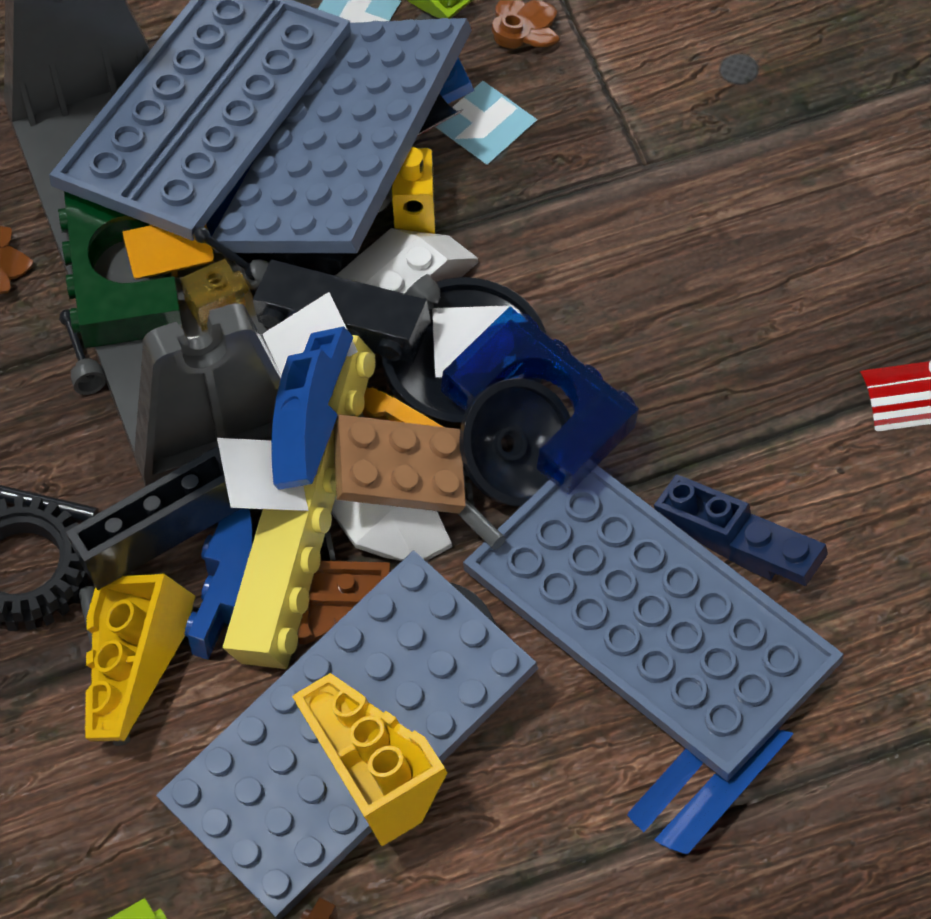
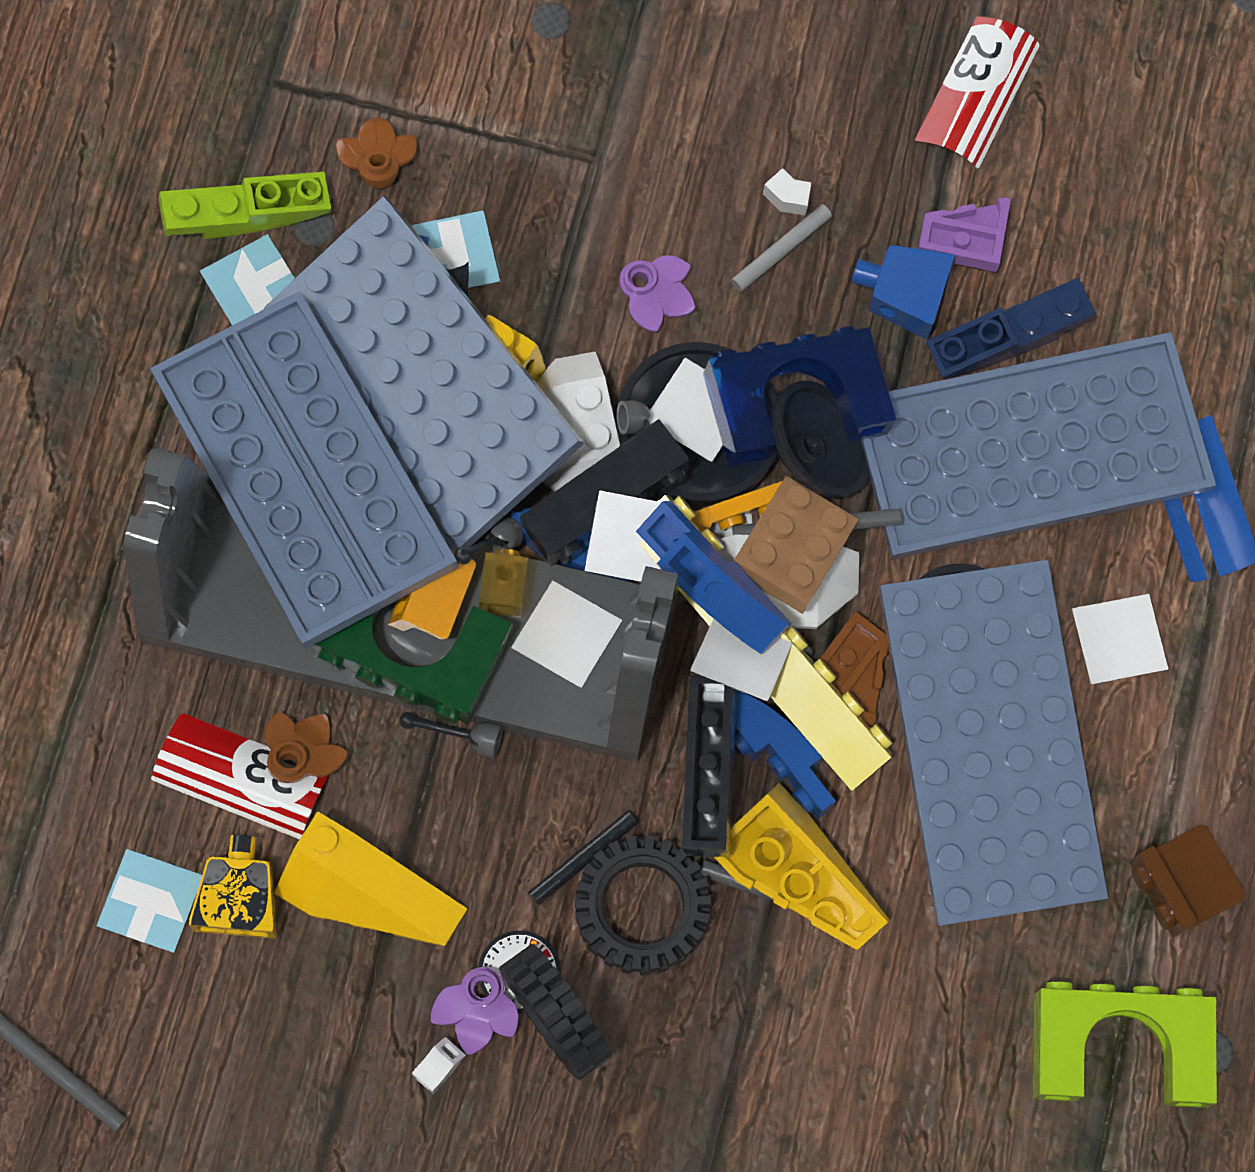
camera: 65 degrees left, 15 degrees up
(379, 760) = (1057, 734): yellow wedge -> none
(531, 792) = (1120, 639): none -> white sticker
(564, 272) = (663, 293): none -> medium lavender plate
(677, 331) = (781, 248): none -> light grey bar
(717, 434) = (906, 286): none -> blue torso
(727, 306) = (787, 194): none -> white piece
(801, 452) = (968, 233): none -> medium lavender wing

